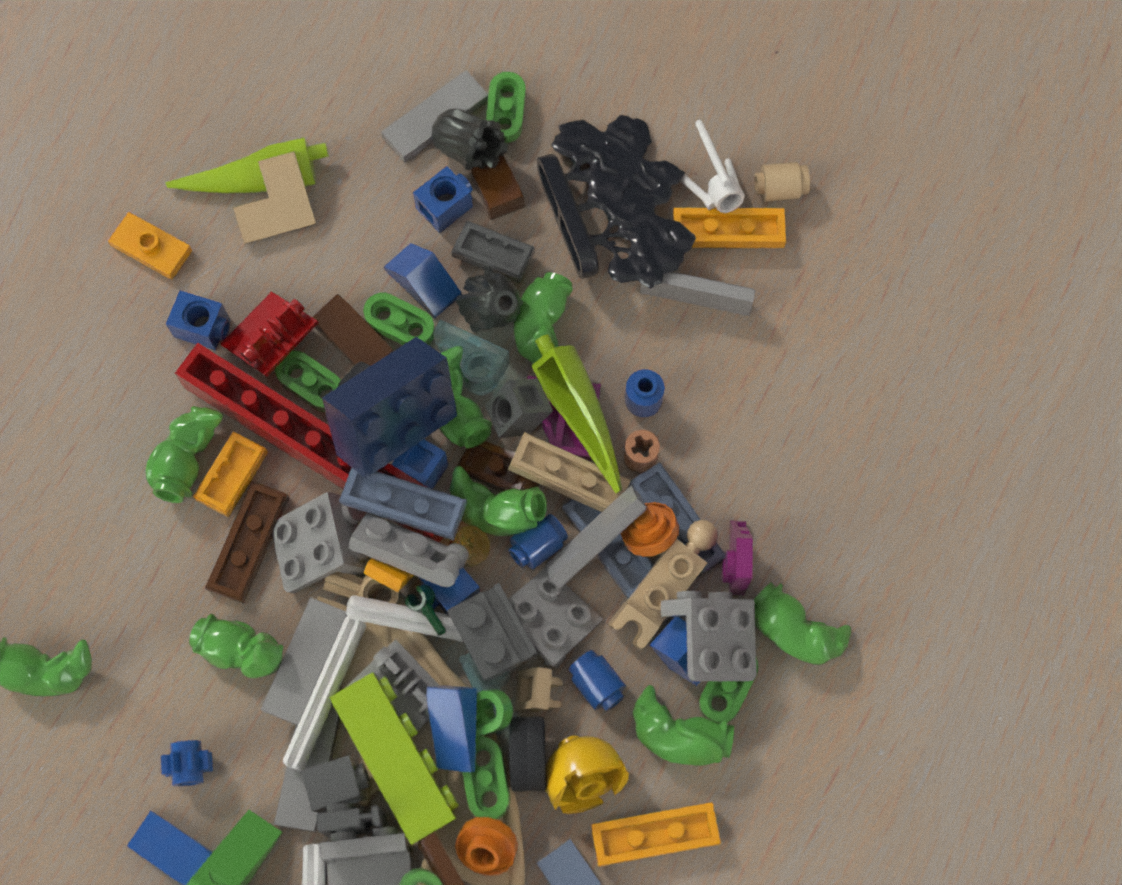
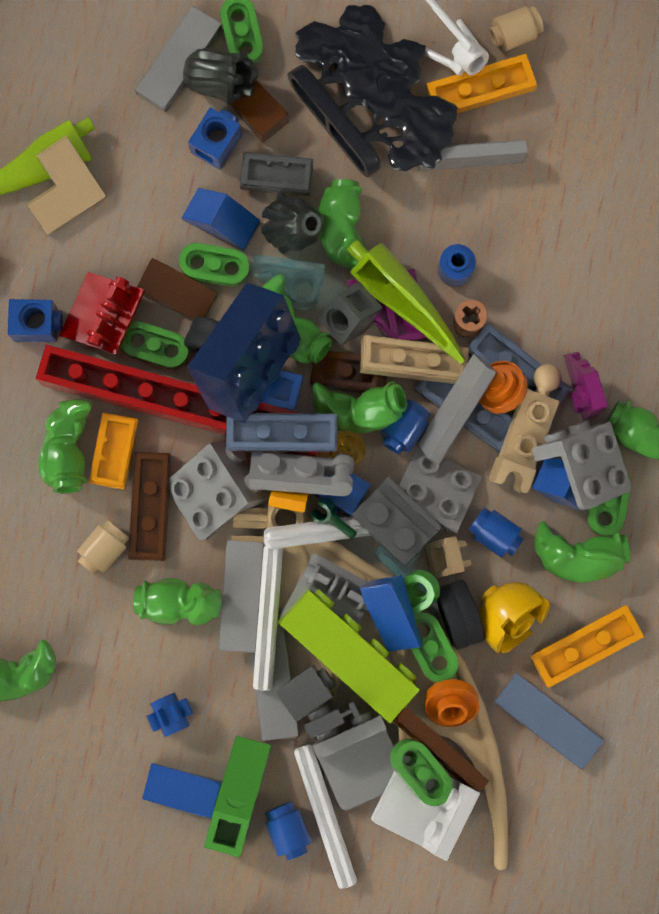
camera: 20 degrees left, 10 degrees up
(182, 567) = (102, 547): none -> tan brick

